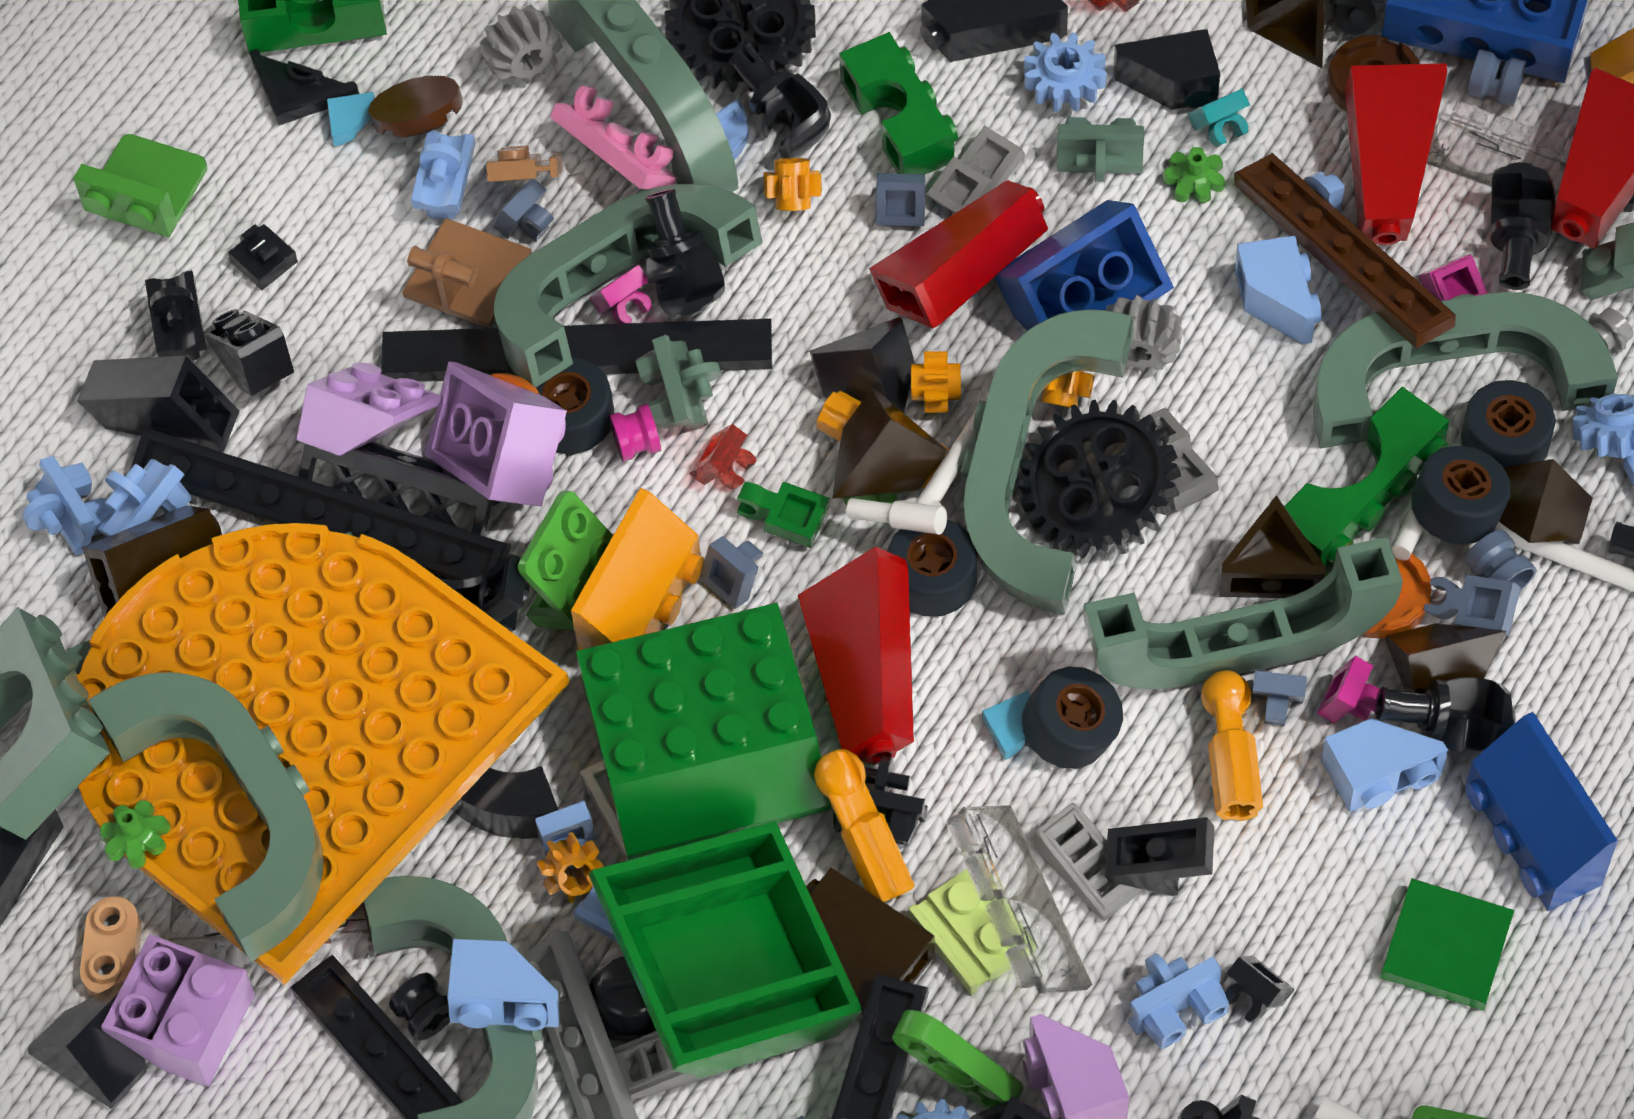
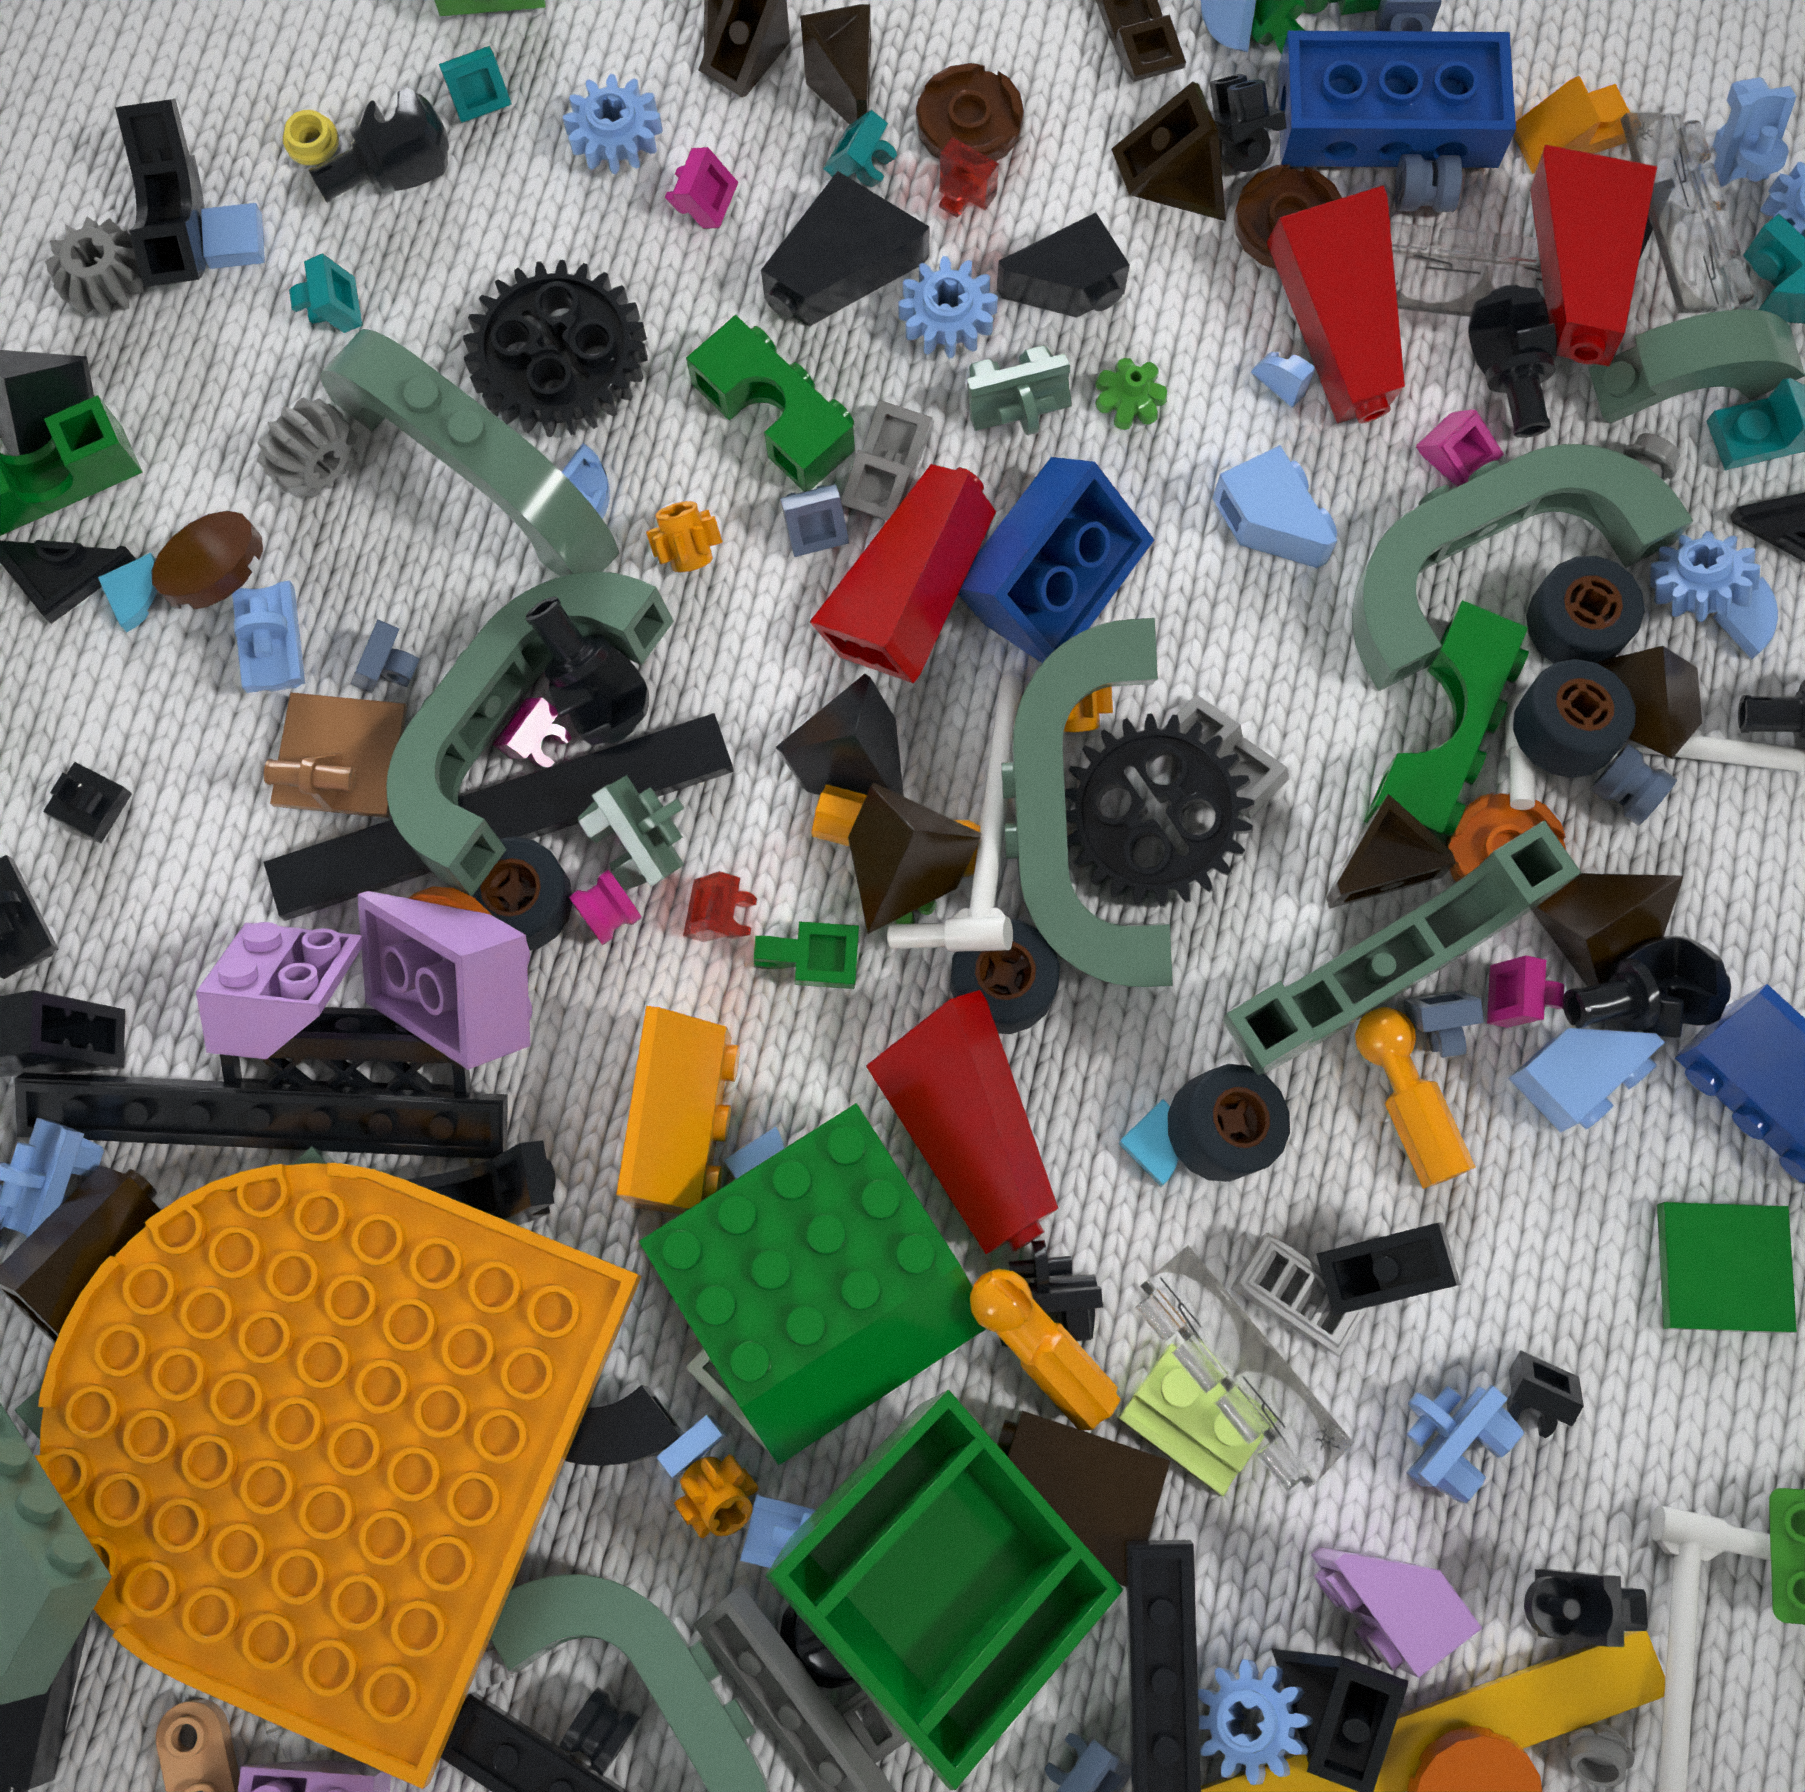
camera: 20 degrees left, 15 degrees up
(134, 833) = (179, 1654): bright green plant -> none
(181, 705) = (324, 1551): sand green arch -> none
(250, 350) = (109, 937): black slope -> none
(498, 987) = (687, 1714): light blue slope -> none
(518, 164) = (361, 605): medium nougat plate -> none
(562, 559) = (585, 1114): bright green bracket -> none
(615, 142) = (460, 542): bright pink plate -> none
(731, 570) = (776, 1050): sand blue tile -> none
(783, 99) = (641, 431): black piece -> none
(936, 381) = (932, 741): light orange gear -> none
(955, 1060) = (1252, 1620): bright green beam -> none
(1155, 332) = (1157, 598): light grey gear -> none
(1221, 112) = (1136, 309): teal tile -> none
(1345, 250) = (1340, 447): reddish brown tile -> none
(1479, 604) = (1634, 843): sand blue plate -> none

